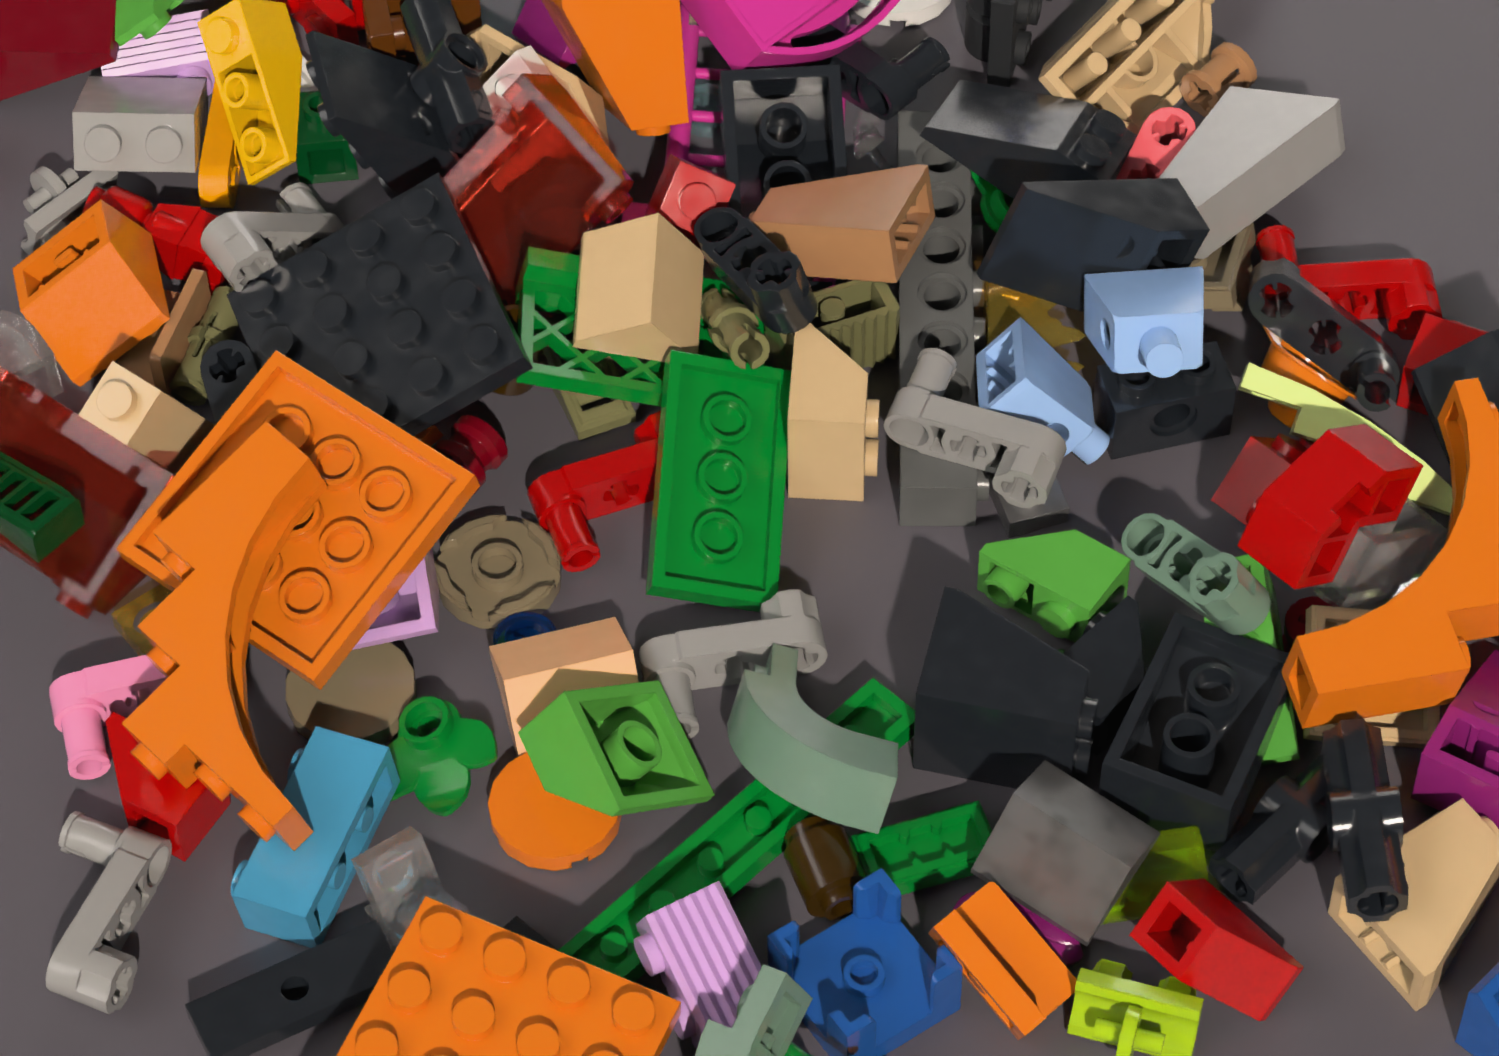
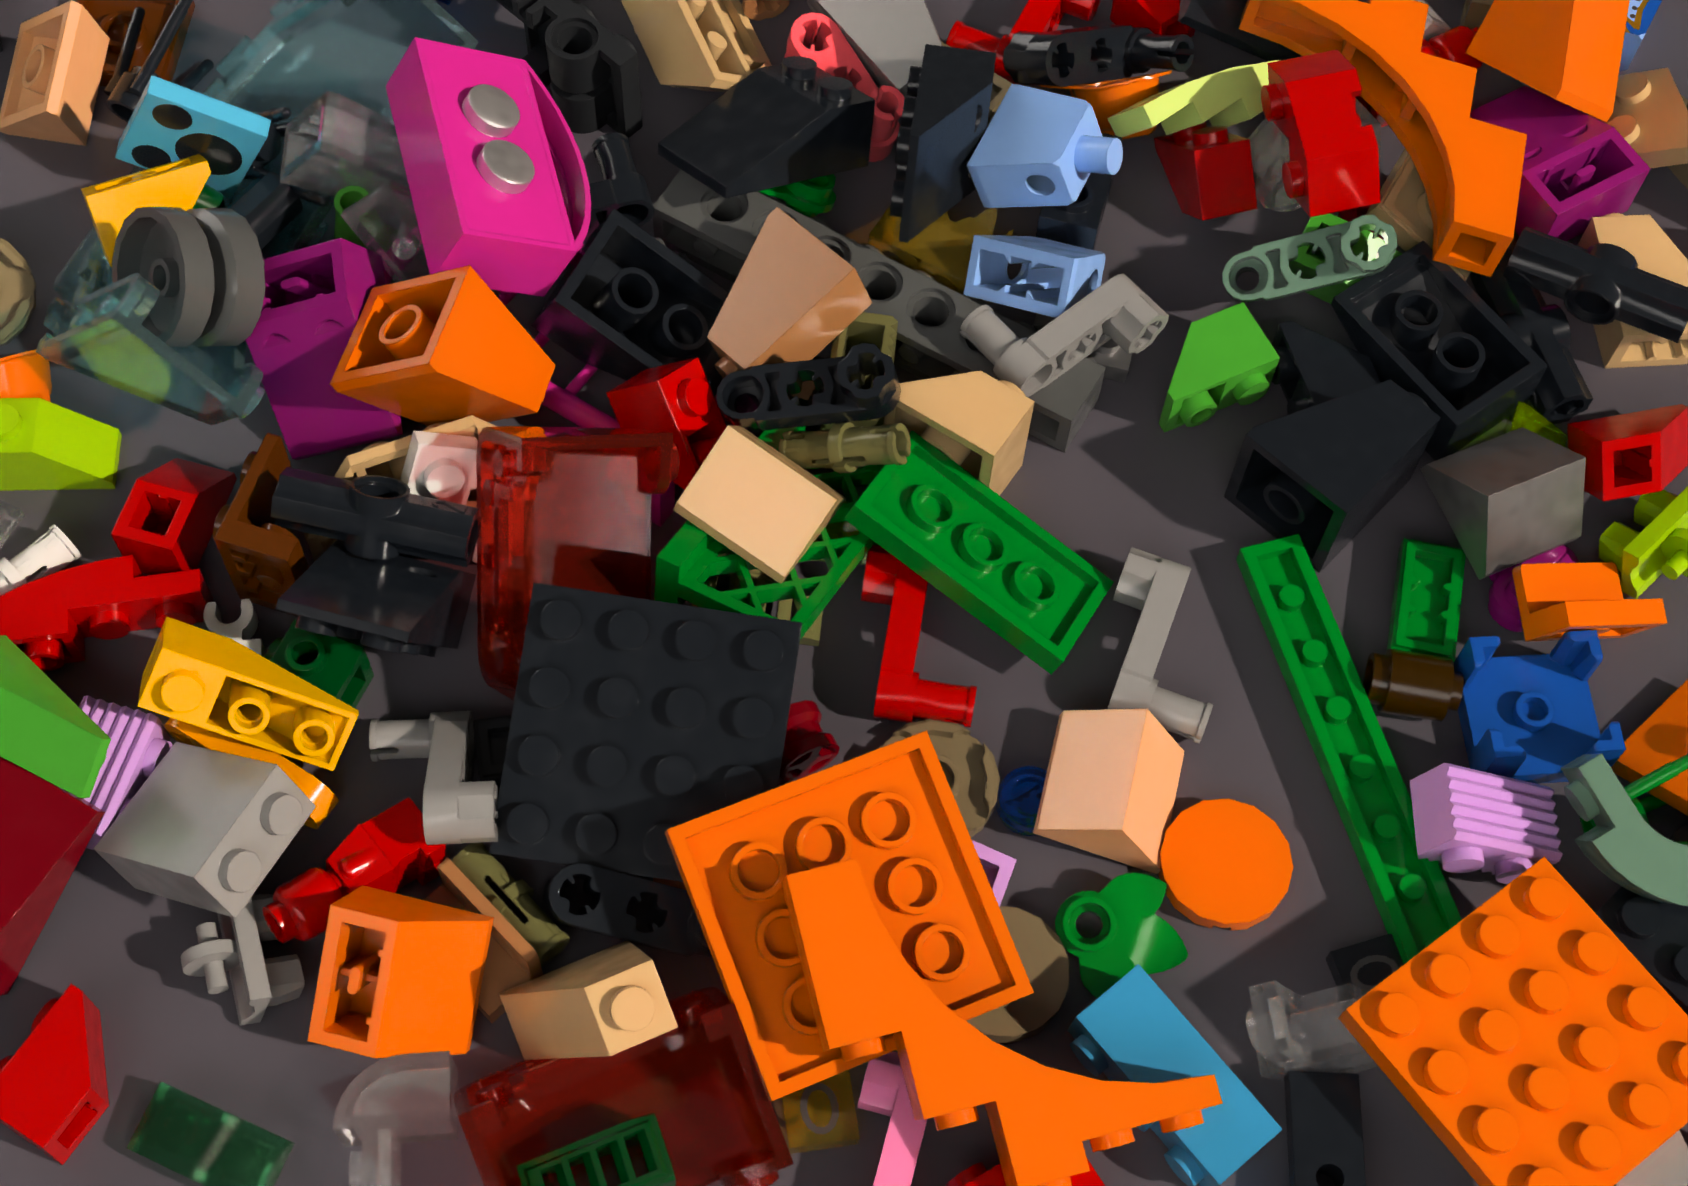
camera: 65 degrees left, 10 degrees up
(615, 750) = (1237, 784): bright green slope -> none
(806, 756) = (1311, 640): sand green arch -> none

